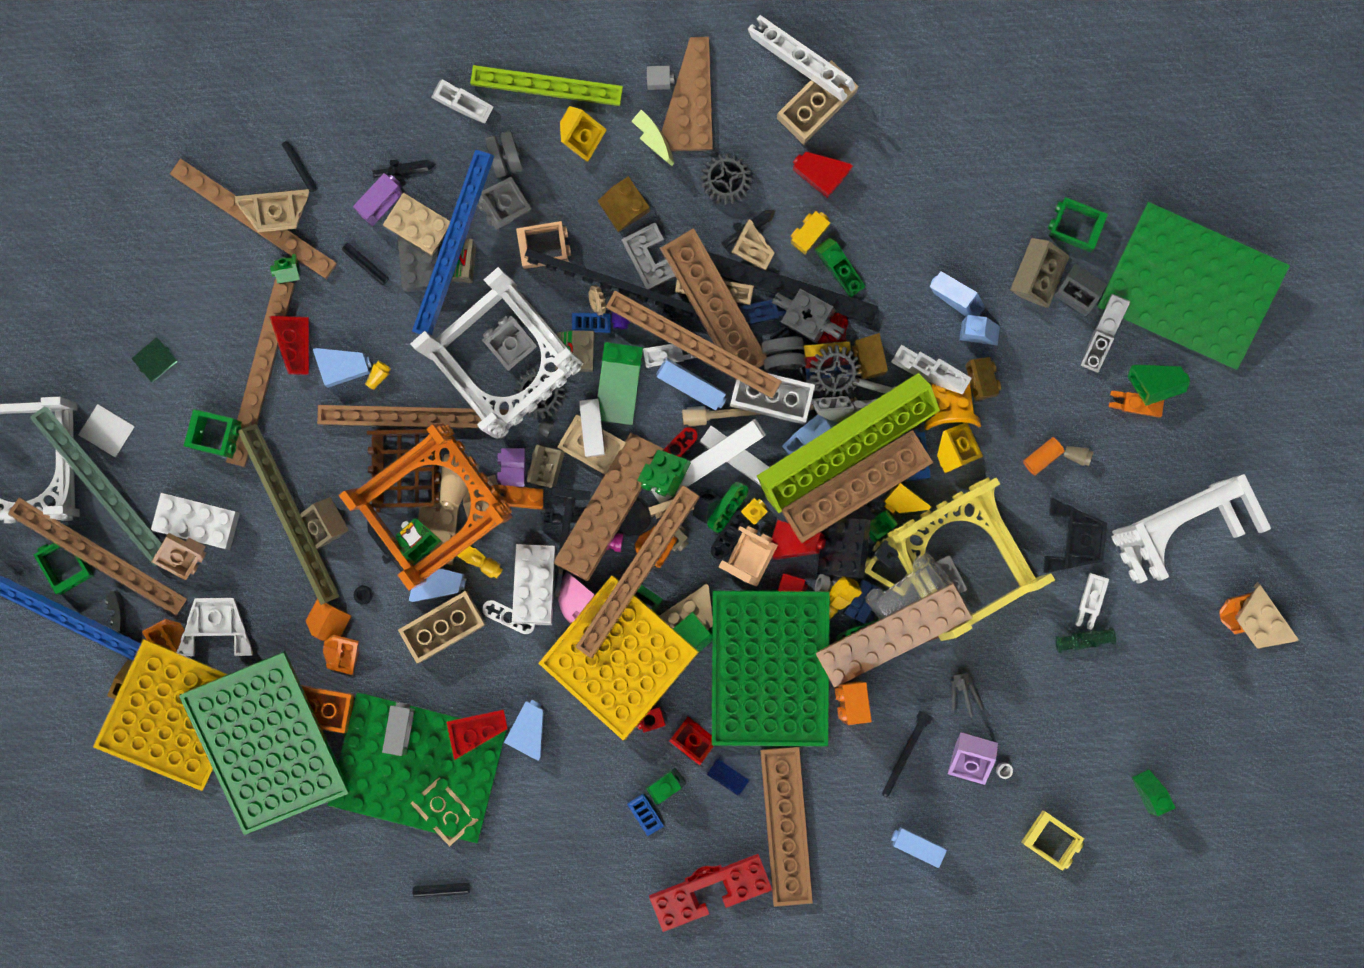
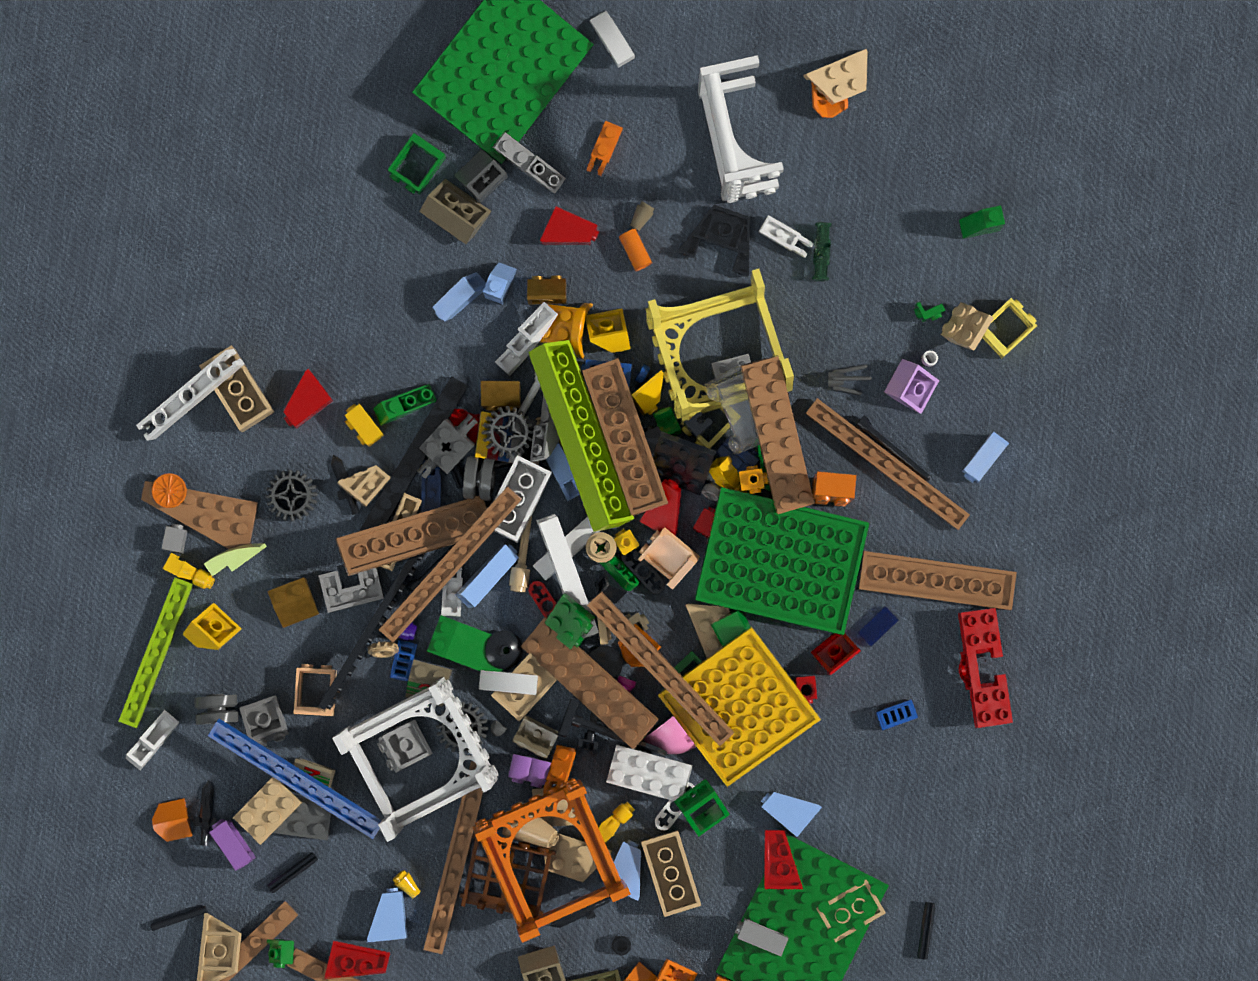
camera: 80 degrees left, 0 degrees up
(390, 138) = (172, 820): none -> orange slope
(415, 540) = (580, 880): green torso -> none
(524, 642) = (689, 804): none -> green window
(624, 407) = (495, 646): none -> black dish
(631, 95) = (186, 571): none -> yellow piece
(665, 786) = (873, 689): green torso -> none
(704, 61) = (169, 490): none -> orange wheel
(751, 484) = (600, 538): none -> tan gear
(840, 614) = (745, 477): none -> light orange brick
(889, 751) = (887, 464): none -> medium nougat plate
(923, 490) = (642, 373): none -> blue tile
(1045, 800) = (966, 326): none -> tan plate
(1048, 386) = (568, 229): none -> red slope
(1049, 763) = (933, 313): none -> green bracket
(1158, 382) = (588, 123): green slope -> none
(1247, 387) = (612, 39): none -> white slope

